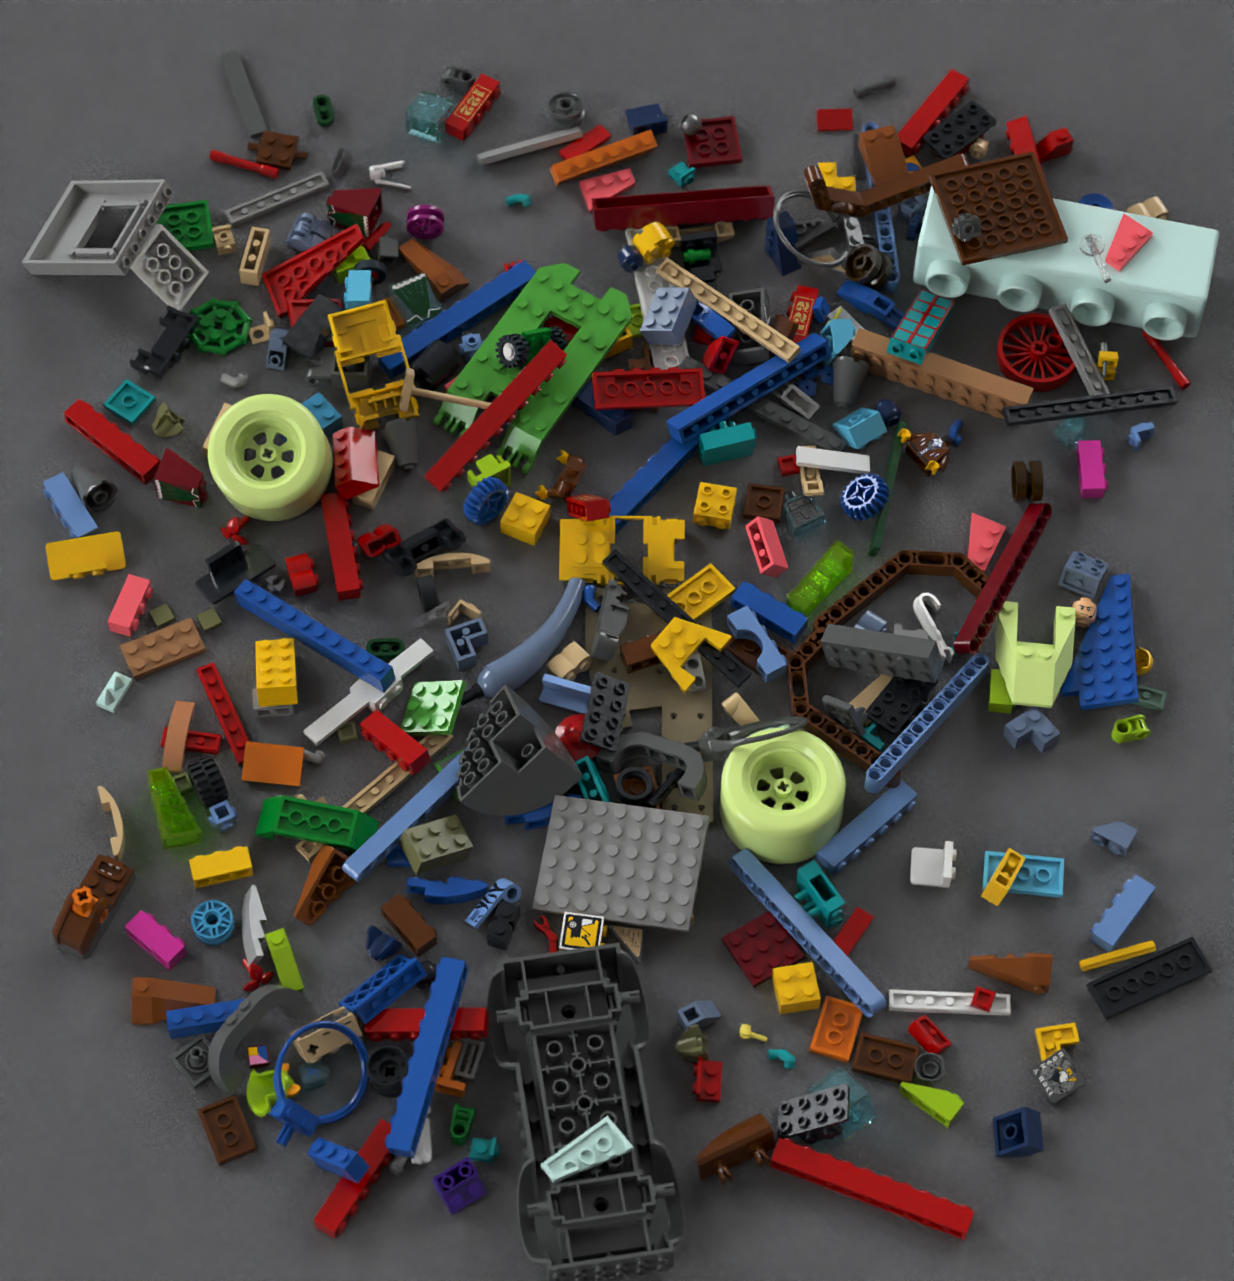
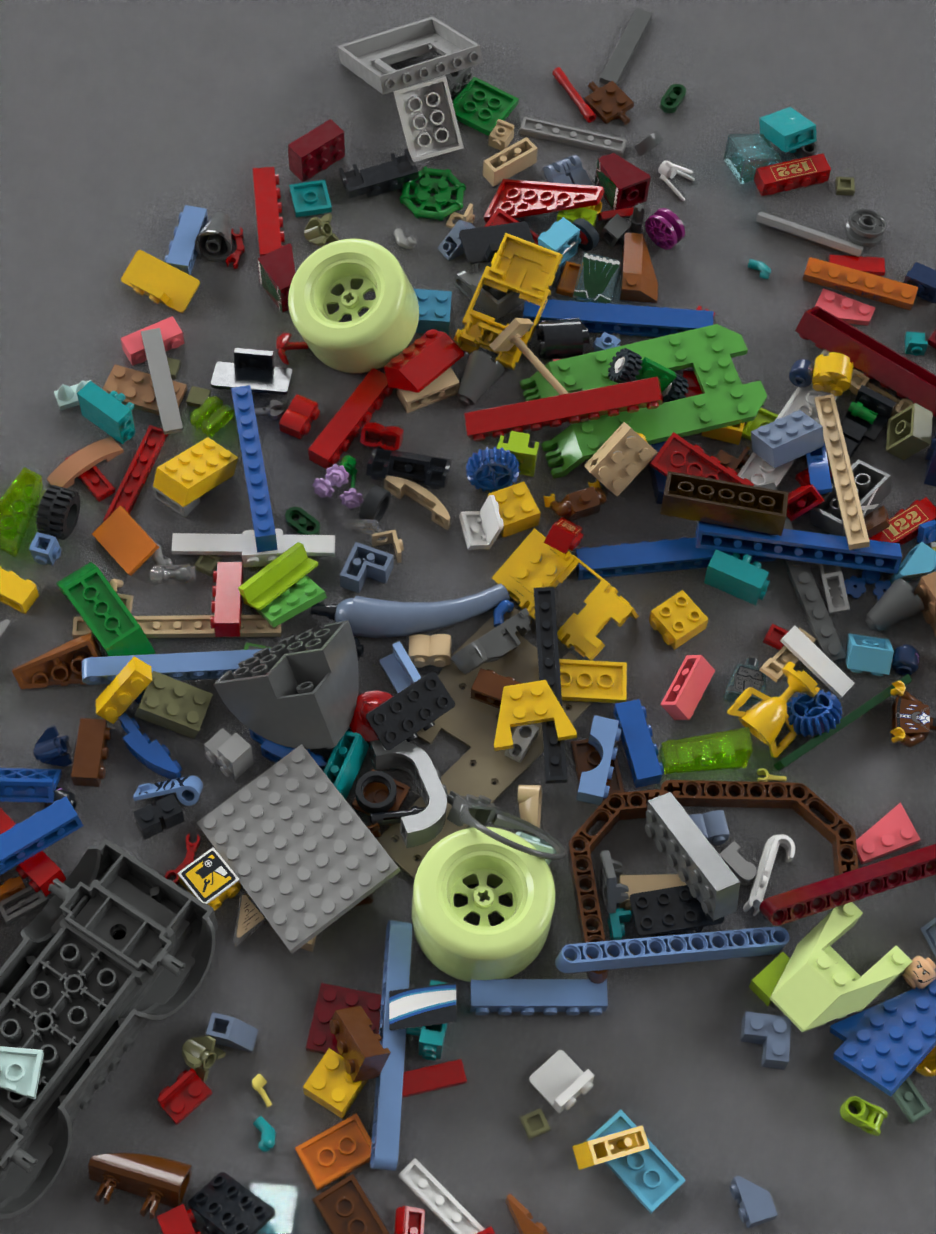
camera: 40 degrees right, 0 degrees up
(99, 360) = (316, 150): none -> dark red brick
(120, 493) = (240, 248): none -> red piece
(160, 683) = (107, 411): none -> teal piece
(174, 628) = (162, 381): none -> light grey tile
(228, 617) = (211, 416): none -> clear neon green brick
(339, 753) = (183, 574): none -> clear piece
(385, 591) = (338, 476): none -> lavender plant
(394, 861) = (123, 690): none -> yellow brick
(397, 229) = (637, 219): none -> dark grey axle
(416, 699) = (277, 577): none -> lime panel
(440, 73) = (788, 129): none -> teal piece
(507, 844) = (230, 753): none -> light grey brick
(517, 87) = (845, 186): none -> olive tile
(517, 546) = (482, 526): none -> white bracket
(570, 421) = (620, 459): none -> tan piece
(677, 396) = (724, 503): none -> dark brown brick
(743, 245) = (909, 431): none -> olive brick
(764, 502) = (725, 651): reddish brown tile -> none
(791, 947) = (358, 1043): none -> reddish brown wedge
(809, 889) = (422, 1006): none -> sticker
(839, 520) = (770, 714): none -> yellow piece
(873, 564) = (769, 777): none -> light yellow hand
(940, 906) = (535, 1124): none -> olive tile

